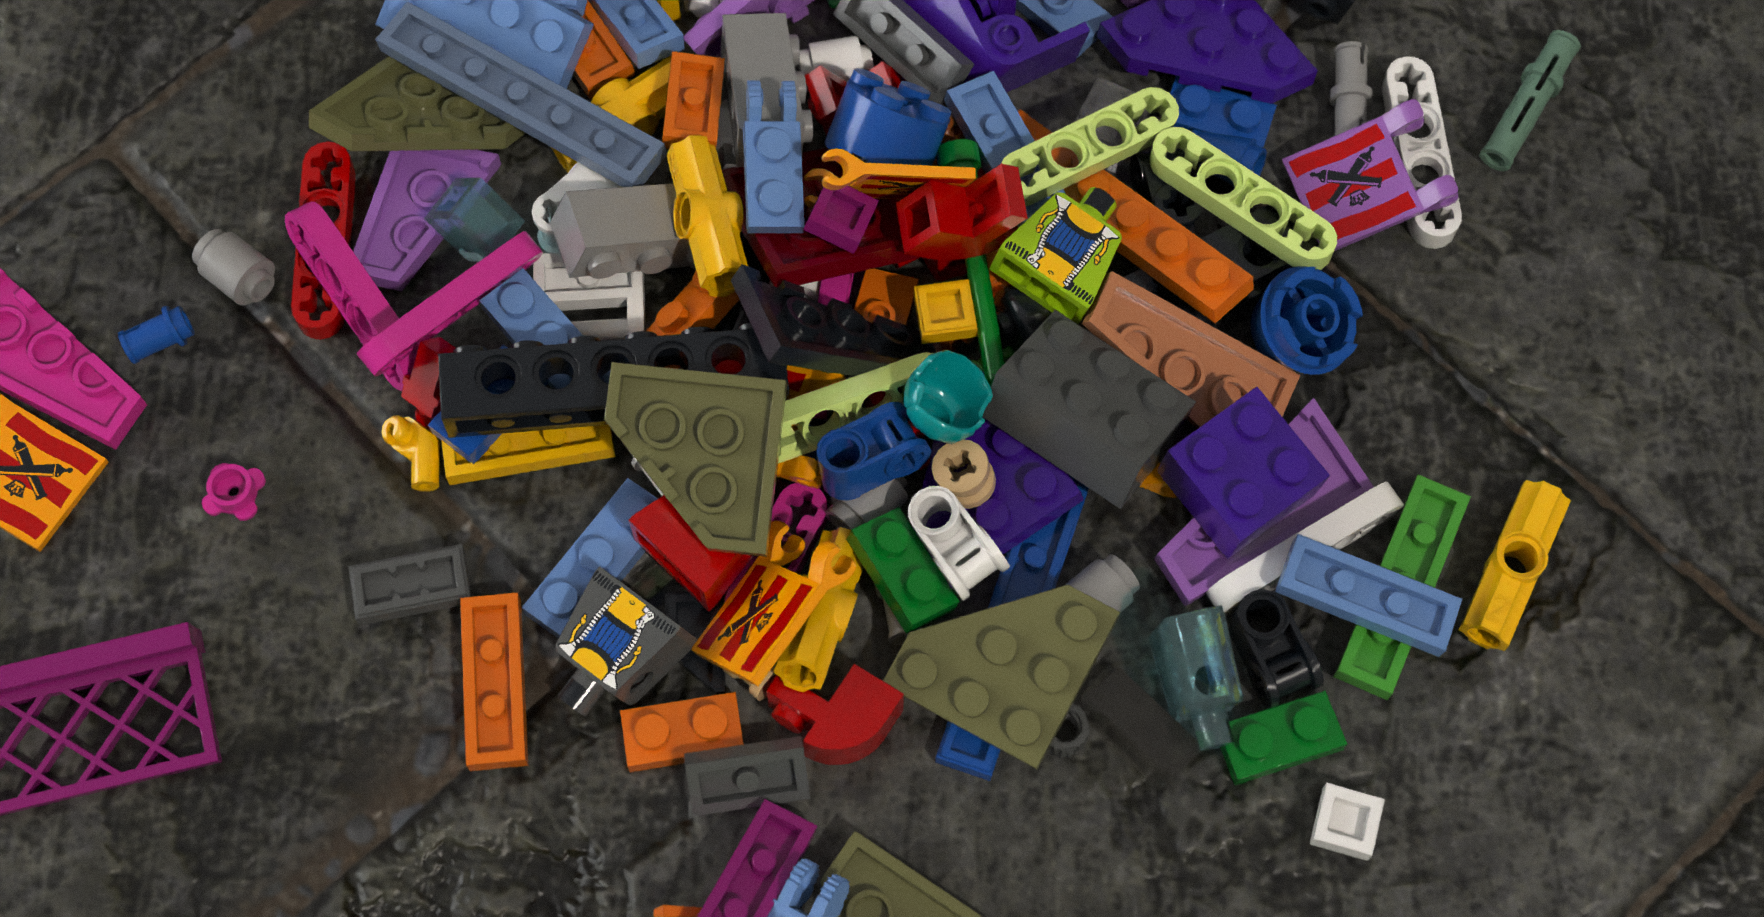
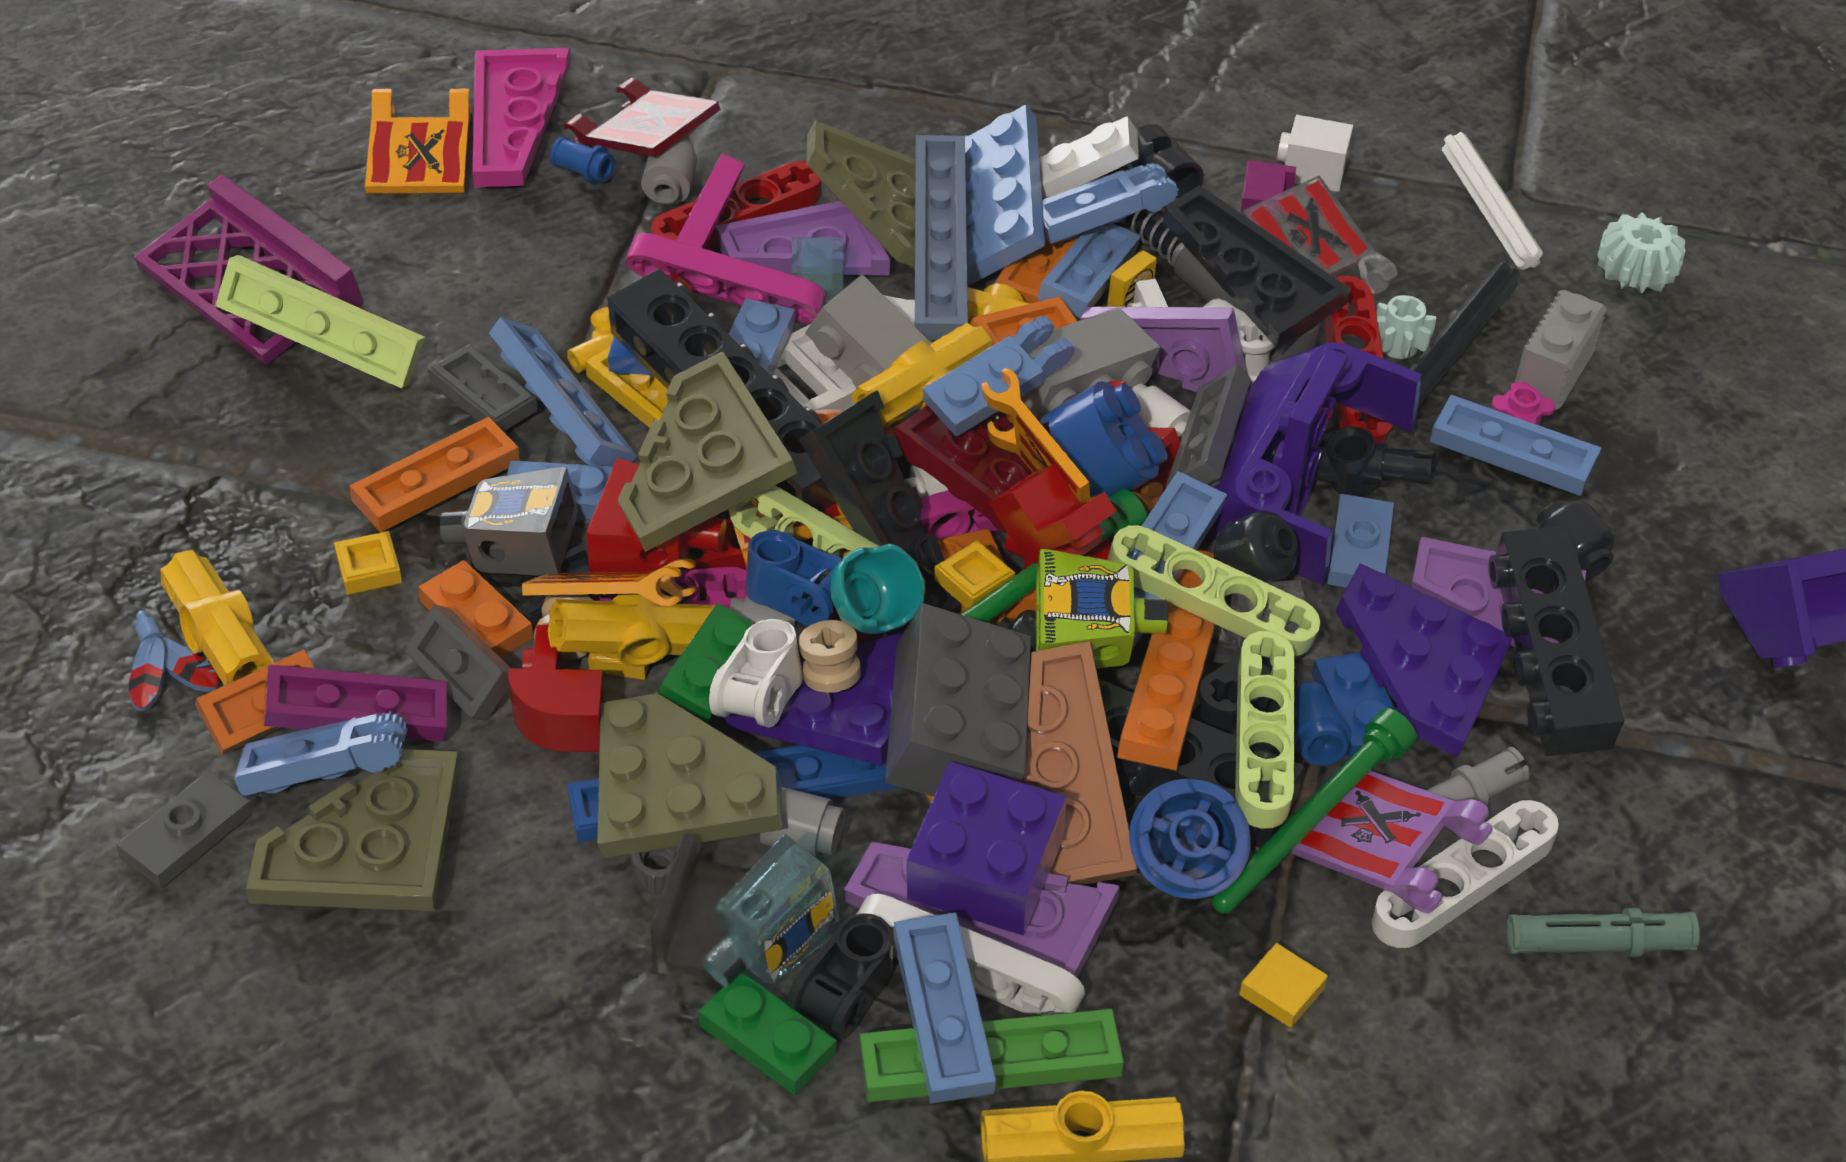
camera: 55 degrees right, 20 degrees down
(163, 250) = (647, 121): none -> flag
(229, 476) = (487, 259): dark pink plate -> none
(230, 687) = (320, 321): none -> yellowish green plate
(455, 519) = (562, 394): none -> medium blue plate
(558, 795) = (367, 562): none -> yellow tile
(841, 217) = (985, 441): magenta plate -> none
(1053, 87) = (1258, 546): none -> black head
(1284, 122) = (1386, 737): none -> green piece
(1347, 821) = (715, 1116): white plate -> none
(1448, 340) = (1283, 985): none -> yellow tile

